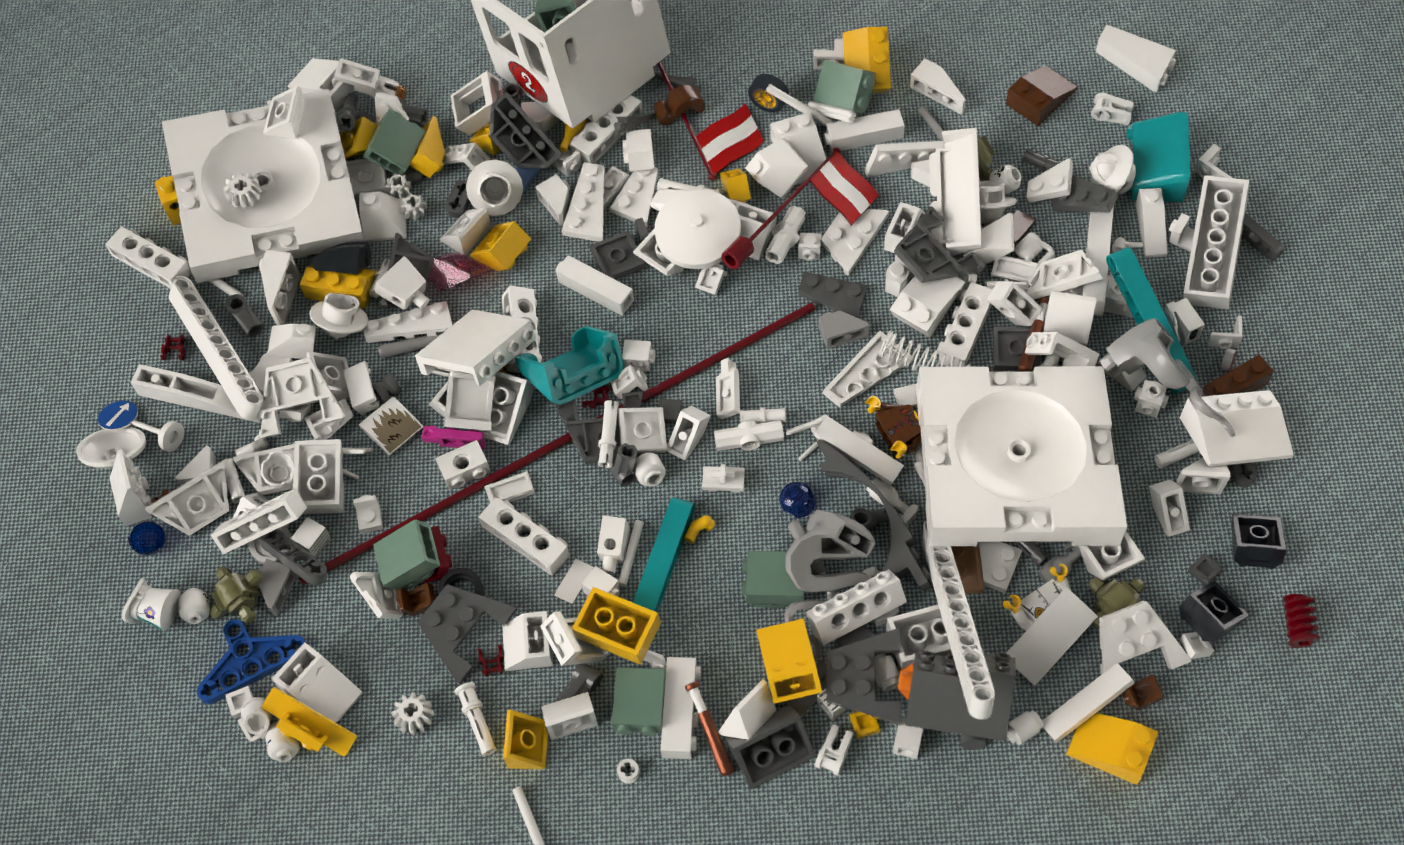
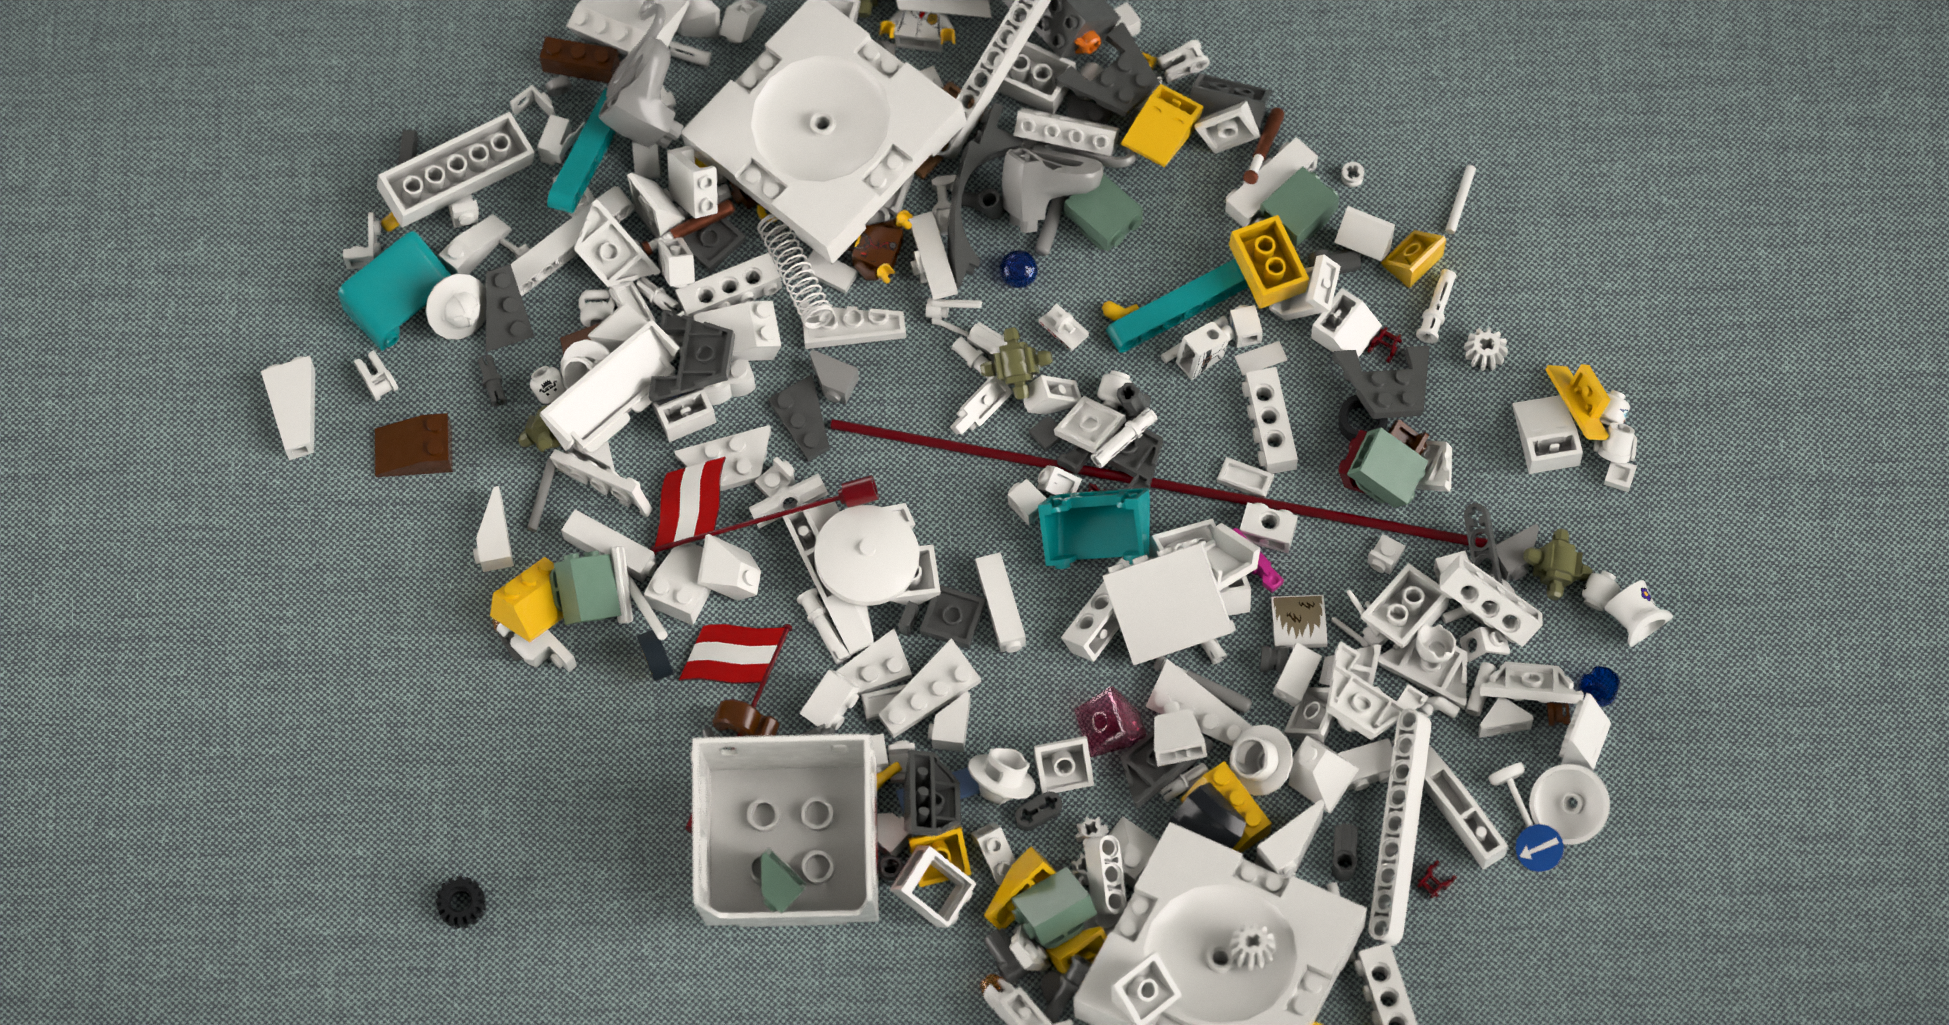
camera: 140 degrees left, 5 degrees up
(233, 664) = (1600, 513): blue beam -> none
(377, 179) = (1108, 863): none -> white beam
(501, 246) = (1047, 716): yellow slope -> none
(723, 416) = (1016, 363): none -> olive piece
(736, 185) = (778, 594): yellow slope -> none
(1051, 183) = (513, 348): white wing -> none

